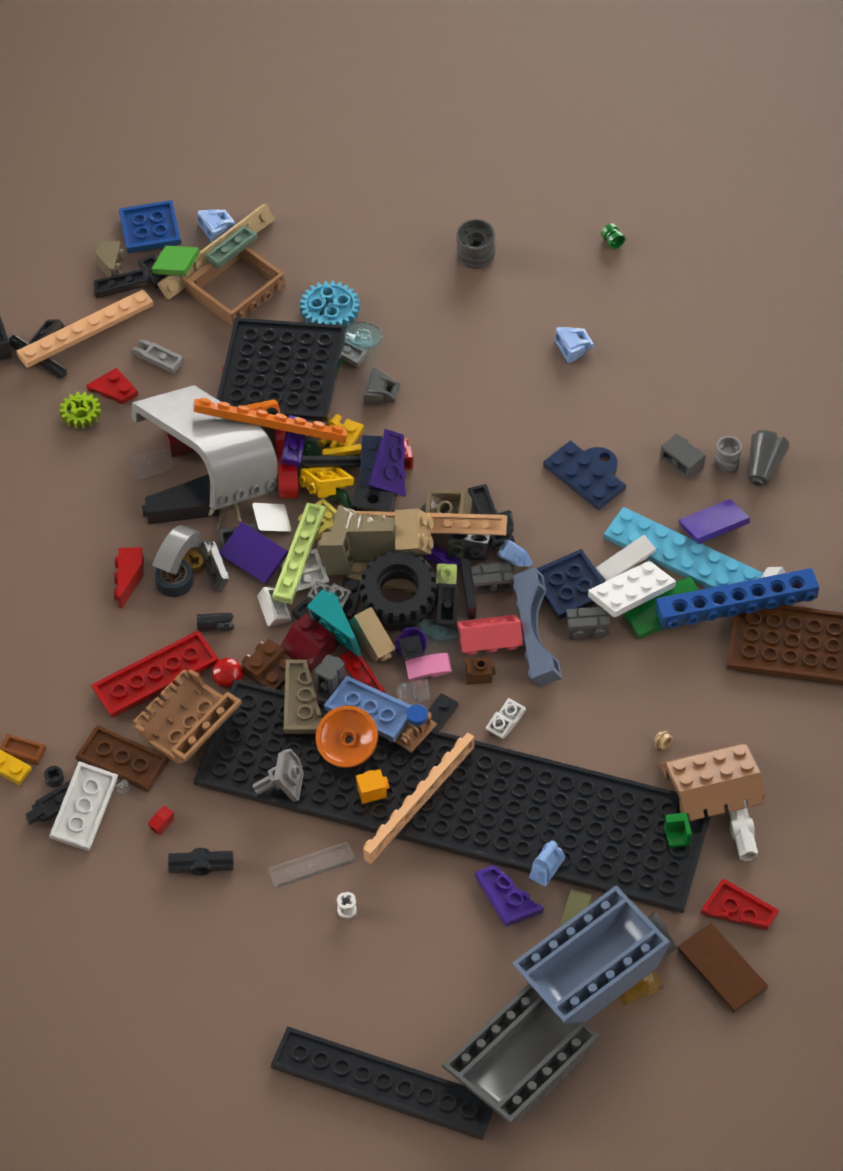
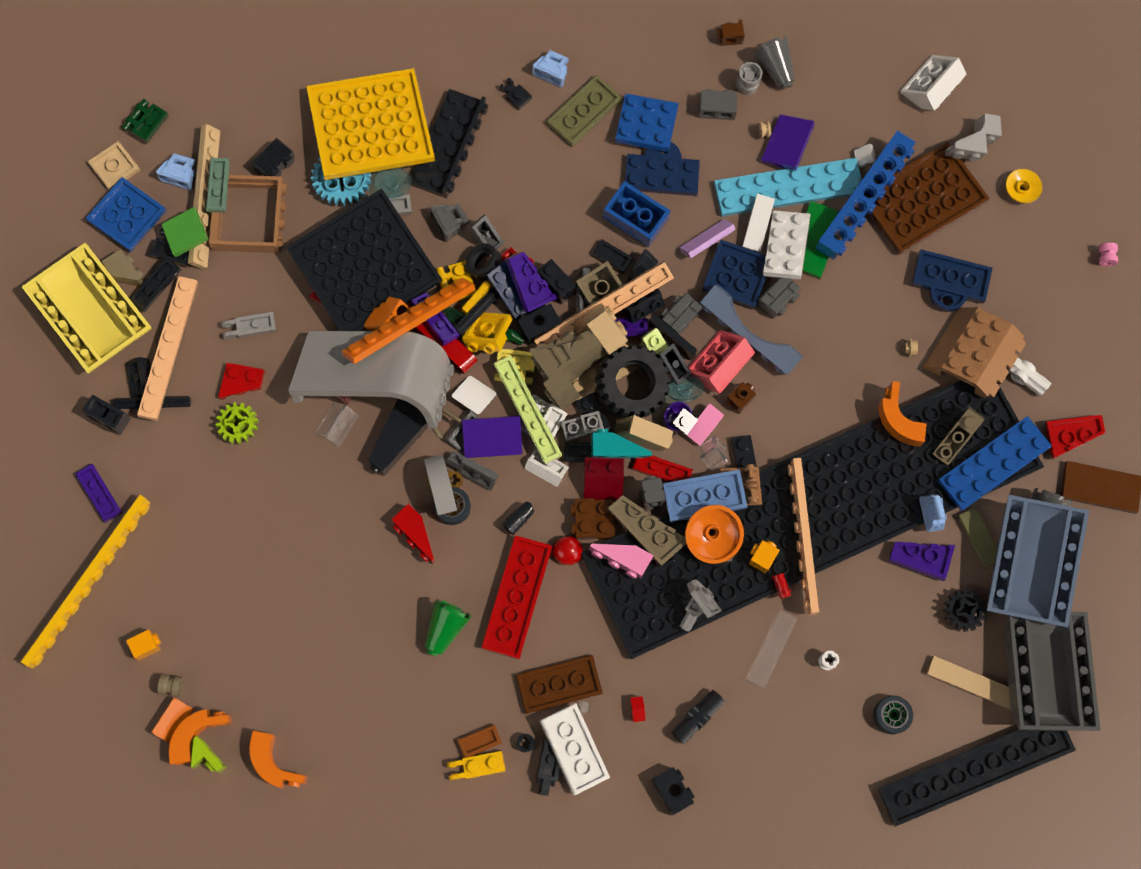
camera: 50 degrees left, 20 degrees up
(57, 260) = (86, 307): none -> light yellow slope
(79, 648) = (444, 626): none -> green cone
(125, 883) = (673, 803): none -> black brick
(177, 189) = (113, 164): none -> tan tile
(184, 717) = (584, 615): medium nougat slope -> none
(228, 177) = (149, 122): none -> dark green plate
(264, 704) = (628, 557): none -> bright pink slope
(292, 261) = (273, 159): none -> black brick
(361, 977) = (901, 709): none -> wheel
(364, 820) = (781, 586): none -> red pin
(372, 427) = (476, 255): none -> black tyre
(387, 283) = (370, 124): none -> yellow plate
(397, 414) = (484, 232): none -> dark grey slope
(416, 485) = (557, 281): none -> black brick
(417, 715) = (749, 475): blue tile -> none
(436, 340) = (450, 141): none -> black bracket
(445, 1011) = (969, 682): none -> tan tile
(475, 243) = (402, 27): dark grey wheel -> none
(492, 953) = (967, 617): none -> black gear
(506, 719) = (793, 420): white slope -> none
(514, 554) = (682, 284): light blue piece -> none
(526, 343) = (516, 95): none -> black plate
(530, 483) = (636, 214): none -> blue brick
(569, 390) = (584, 110): none -> olive tile
(573, 542) = (707, 238): none -> lavender tile
(587, 788) = (895, 423): none -> orange arch
(609, 429) = (646, 122): none -> blue plate
(630, 825) = (958, 435): none -> dark tan slope
(641, 871) = (994, 463): none -> blue plate
(677, 830) = (993, 411): green panel -> none
(704, 499) = (764, 129): none -> tan bush
(749, 415) = (731, 33): none -> reddish brown brick
(752, 717) = (951, 279): none -> dark blue plate

